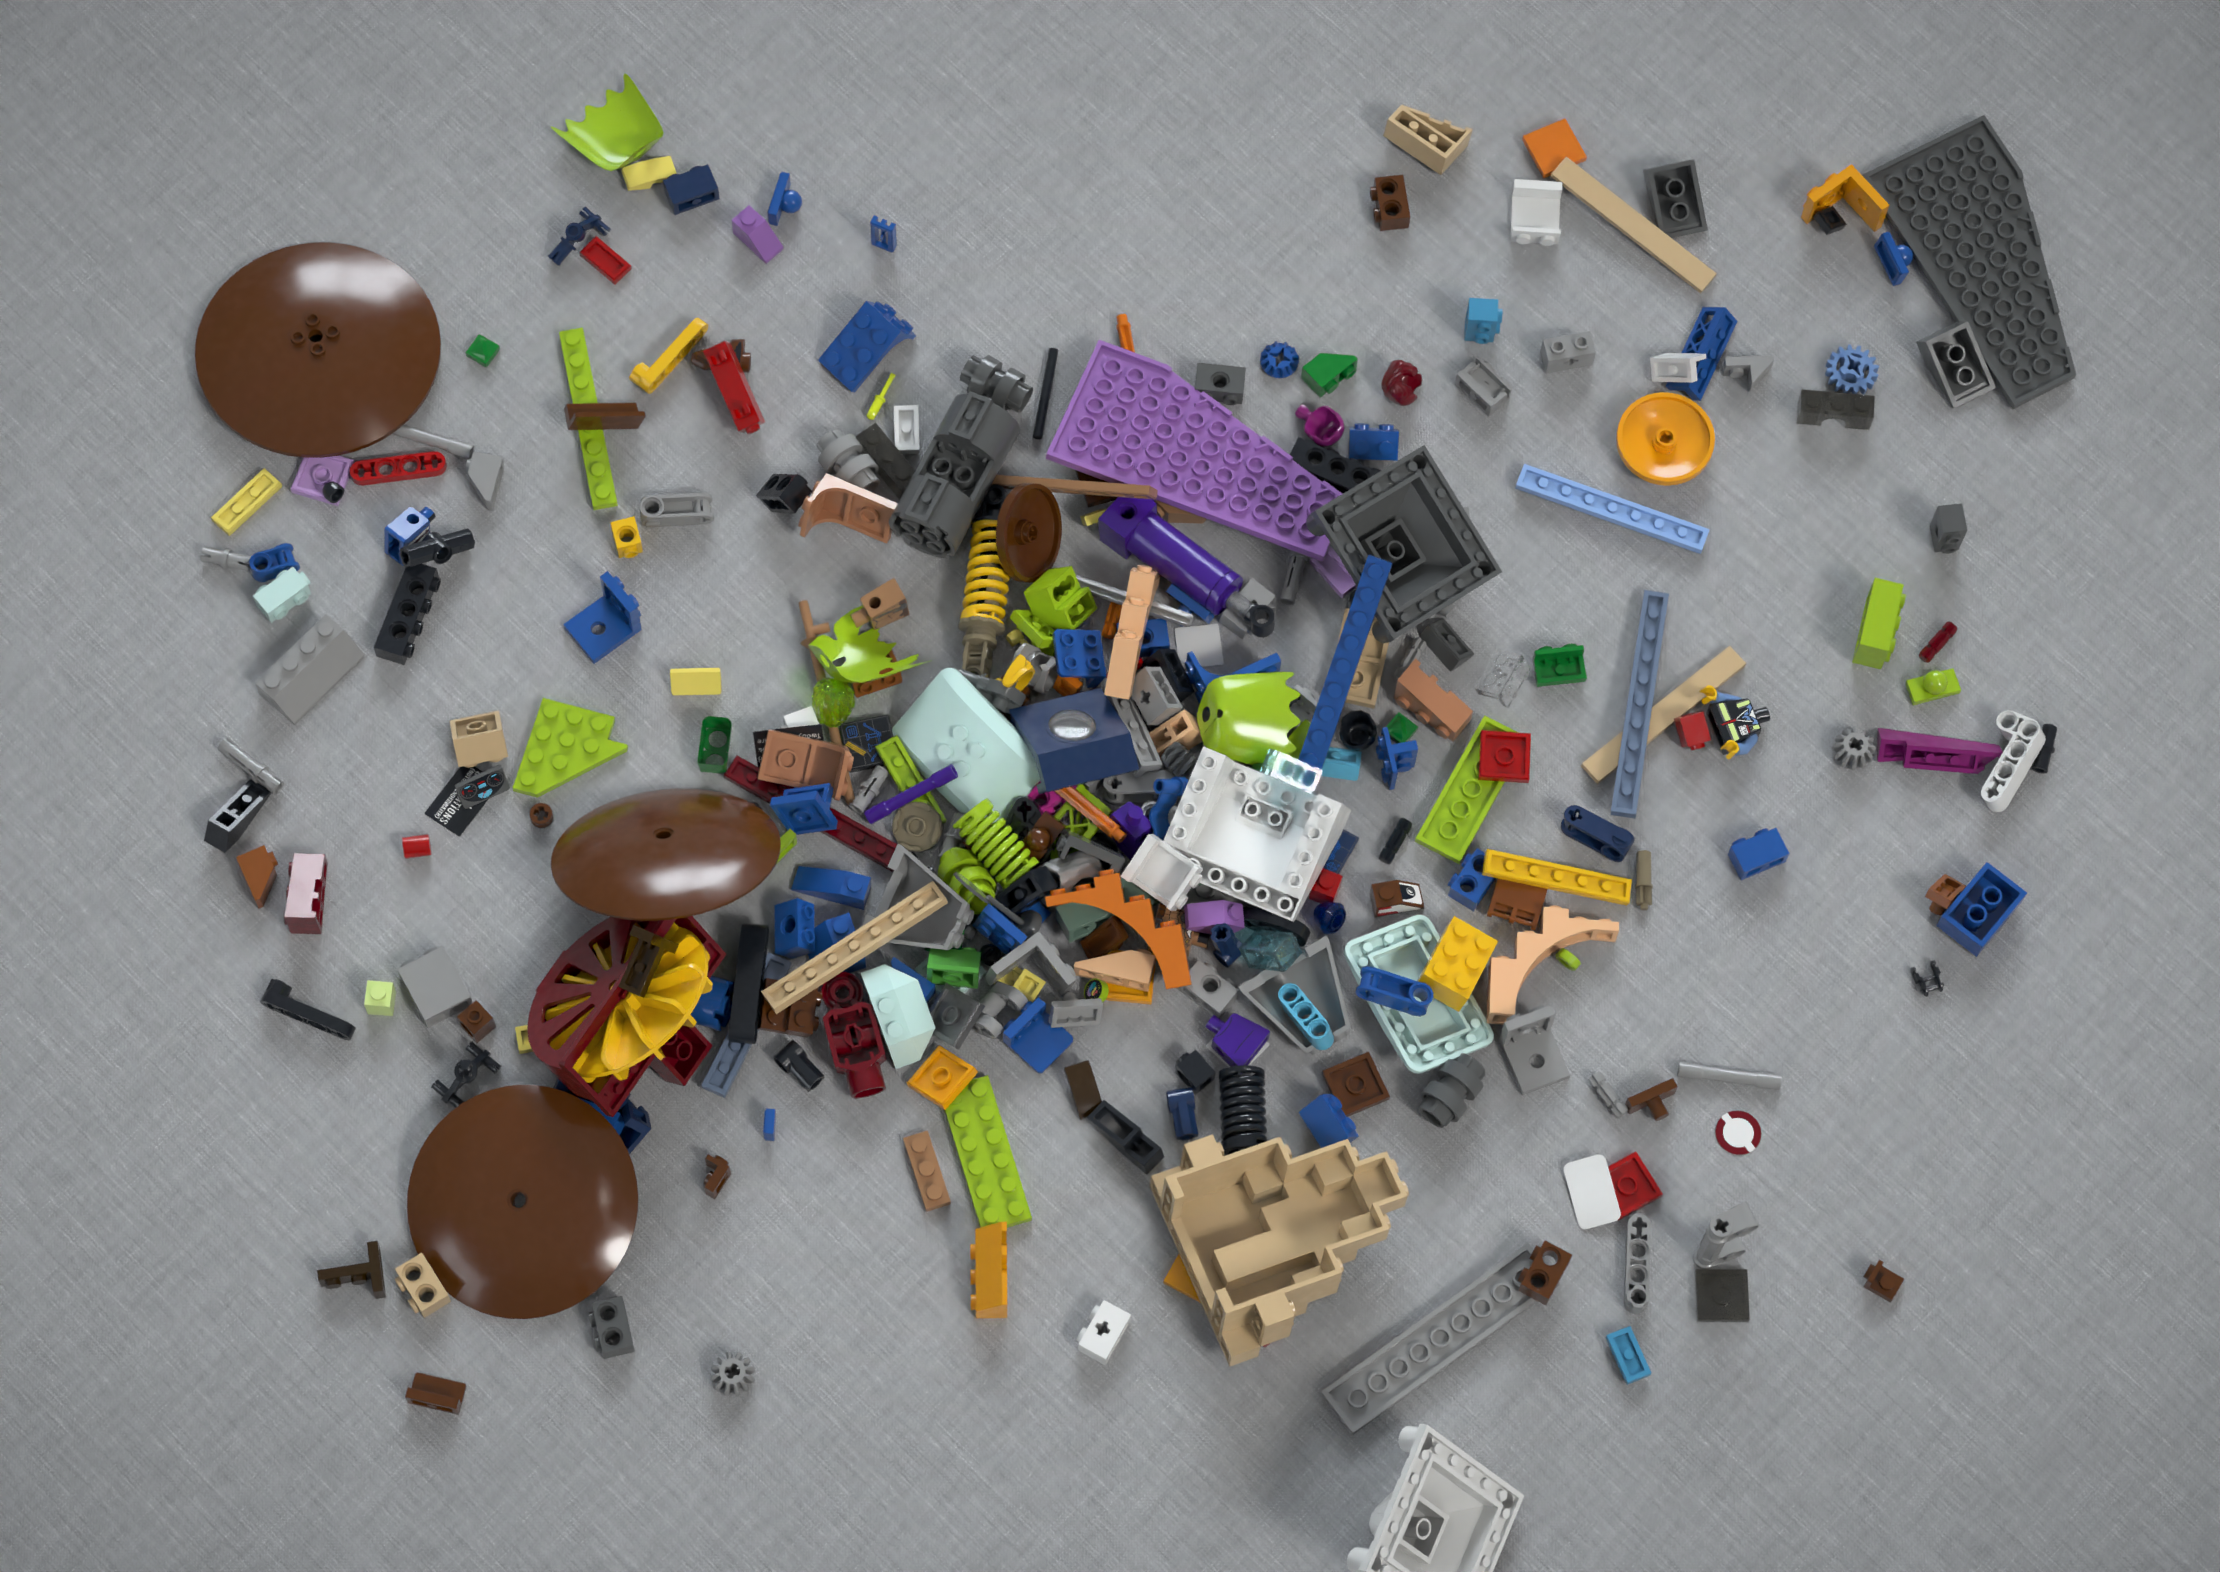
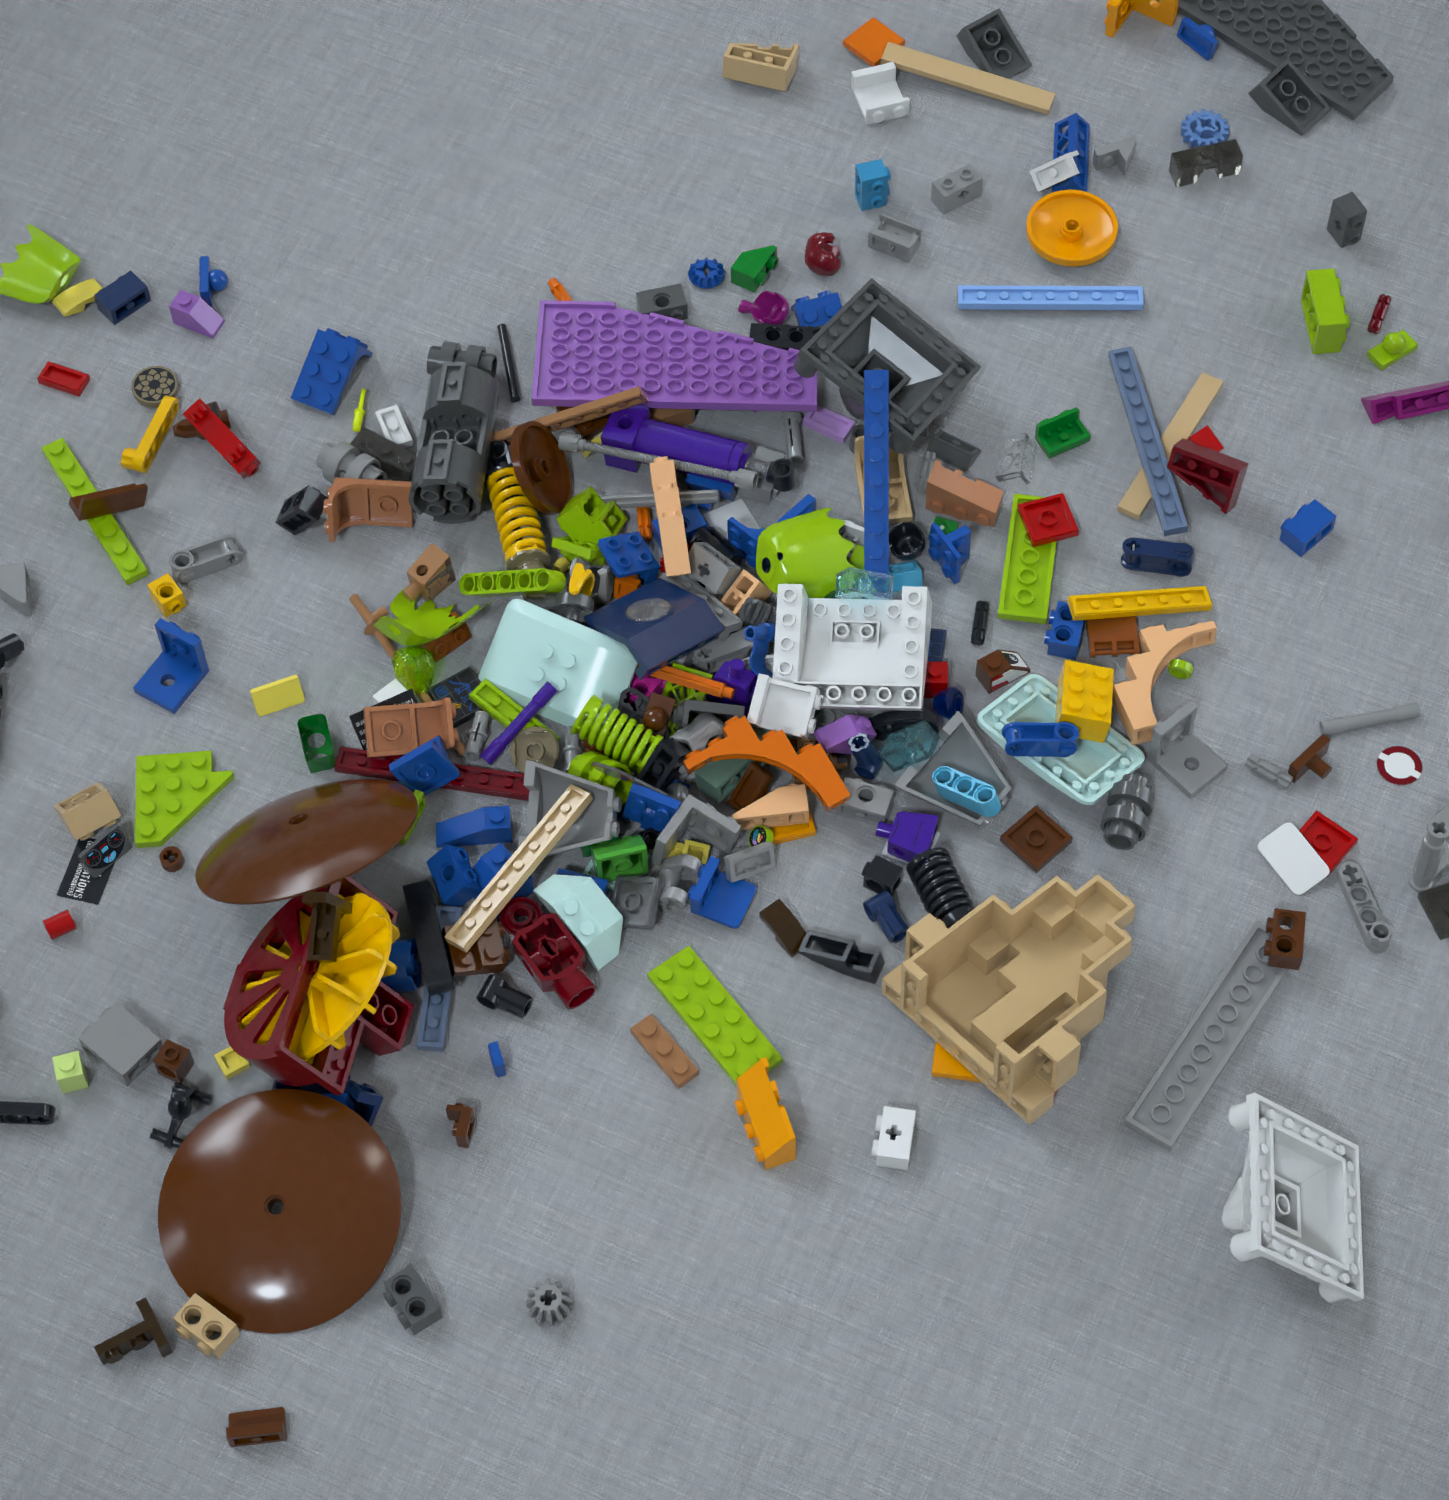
camera: 15 degrees left, 10 degrees down
(576, 233) = (28, 360): dark blue pin -> none
(690, 299) = (153, 384): none -> dark tan tile
(888, 234) = (310, 266): blue tile -> none
(942, 1077) = (646, 961): light orange tile -> none
(955, 647) = (512, 583): none -> lime beam
(1217, 613) = (742, 478): none -> light grey hose
(1328, 1121) = (1023, 875): blue brick -> none
(1394, 202) = (752, 123): reddish brown brick -> none
(1628, 1355) = (1393, 989): dark azure plate -> none
(1643, 879) = (1216, 582): dark tan piece -> none
(1683, 762) = (1208, 471): none -> dark red wedge
(1734, 721) = (1235, 428): torso -> none
(1829, 220) = (1131, 27): black tile -> none
(1855, 740) = (1349, 417): light grey gear -> none

